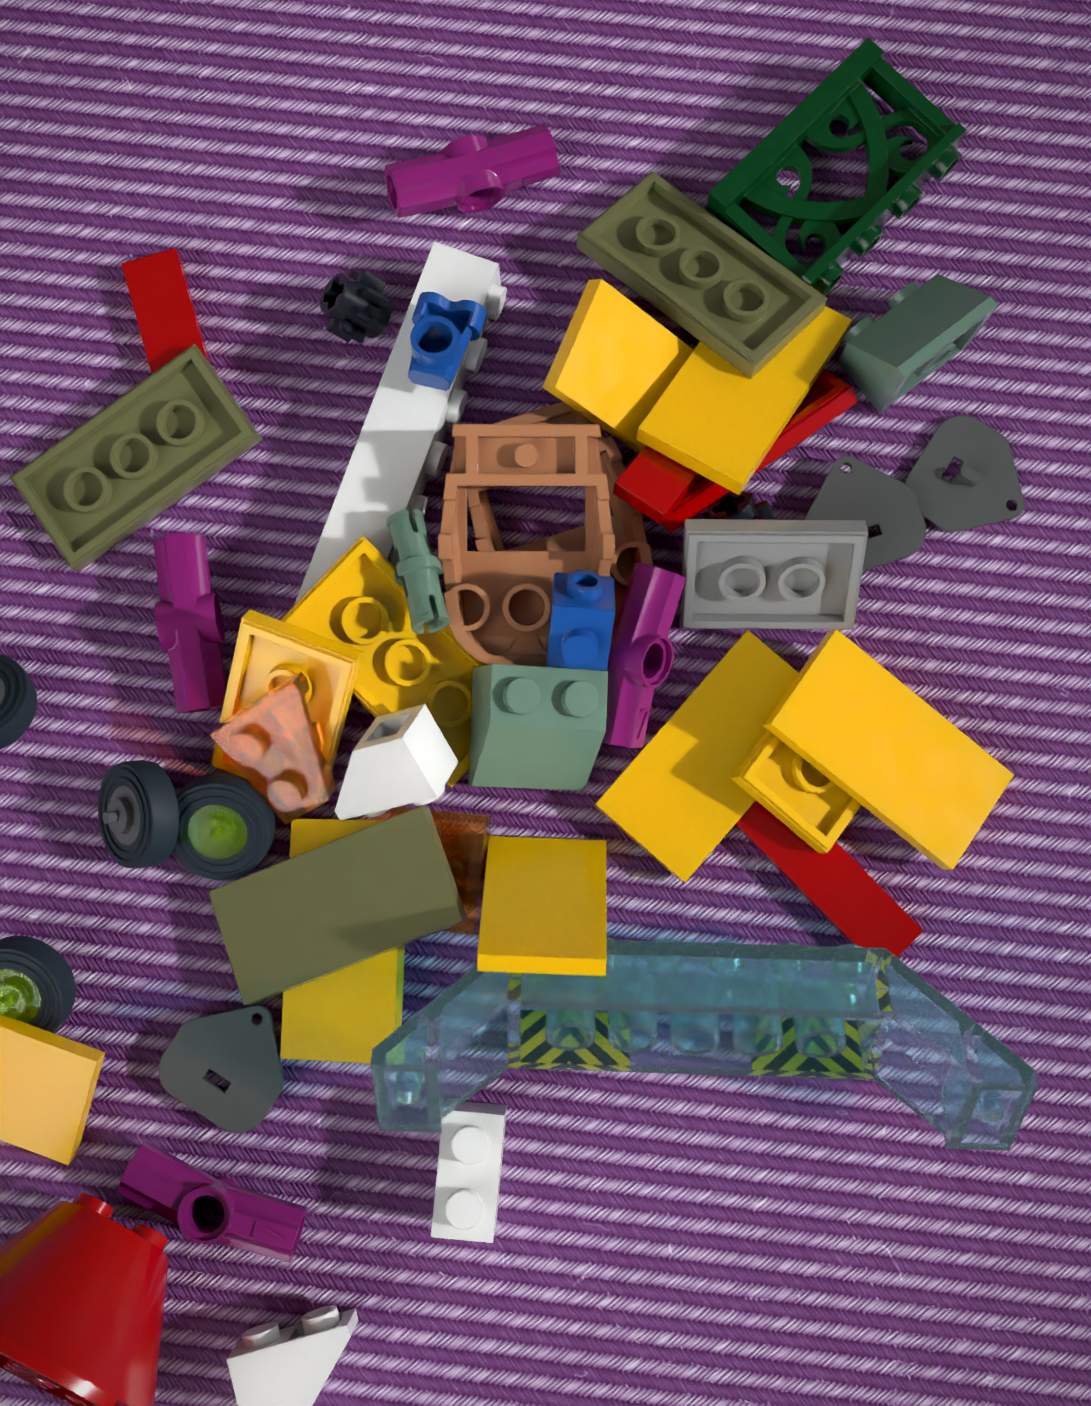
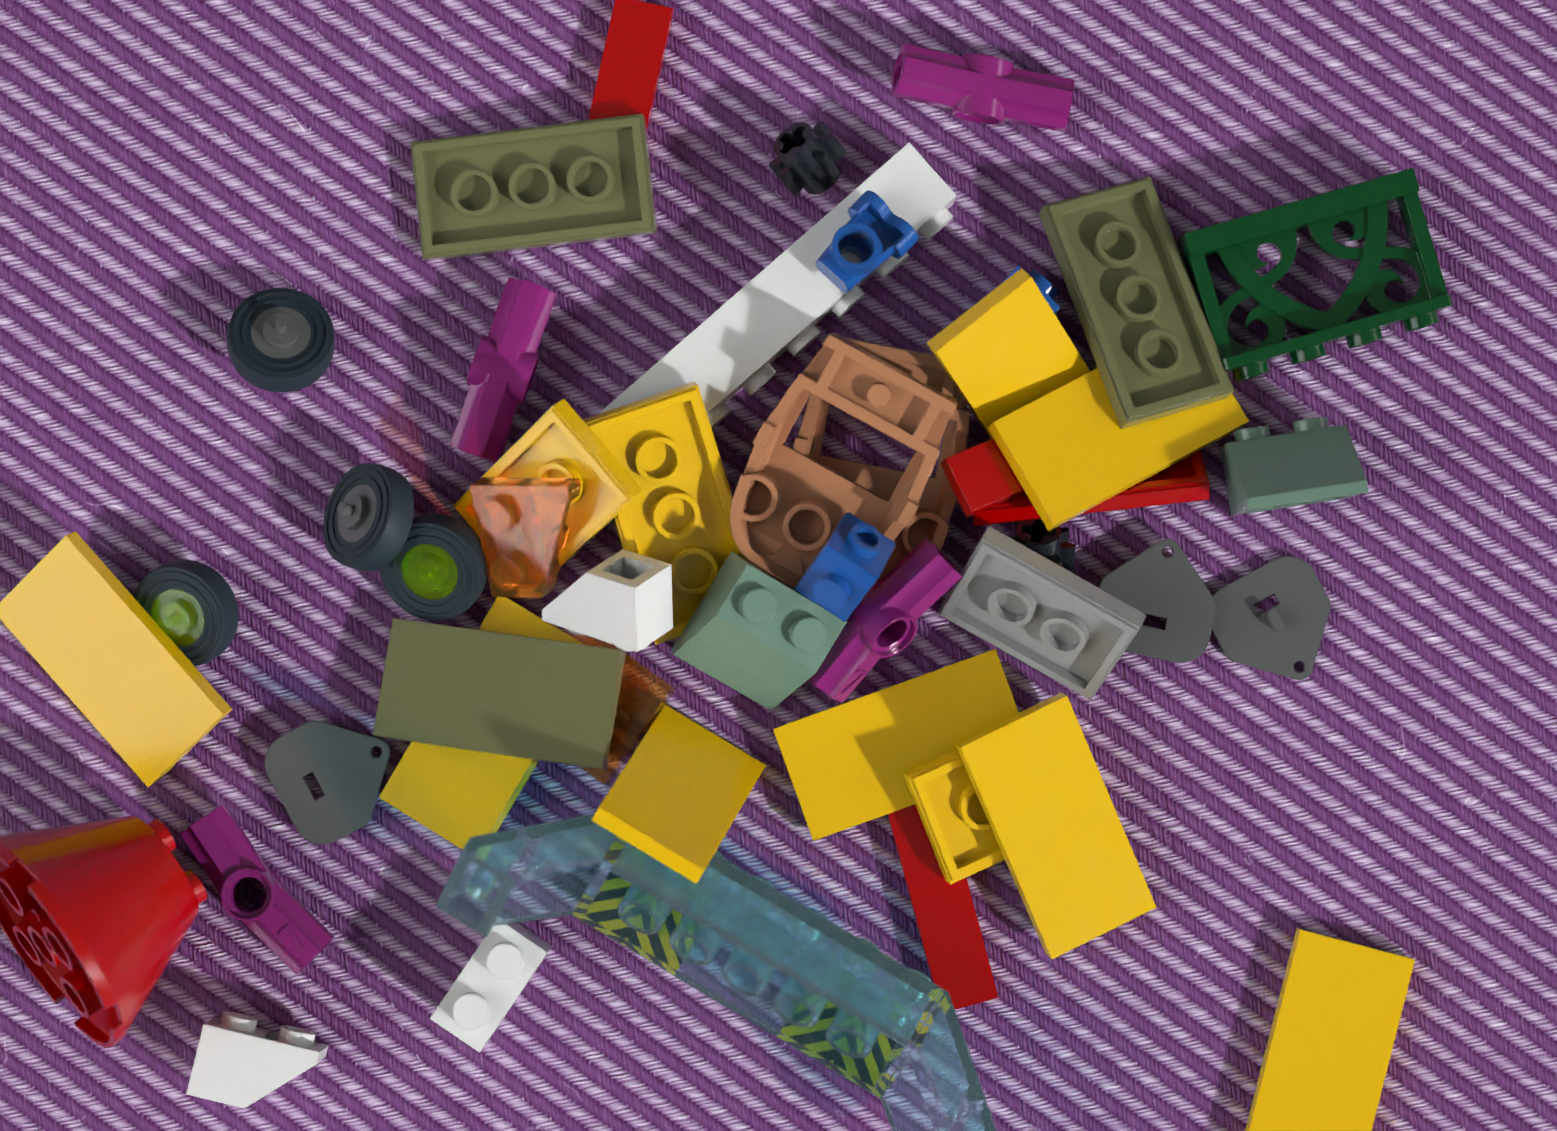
camera: 25 degrees right, 5 degrees up
(418, 571) = (728, 442): sand green pin -> none

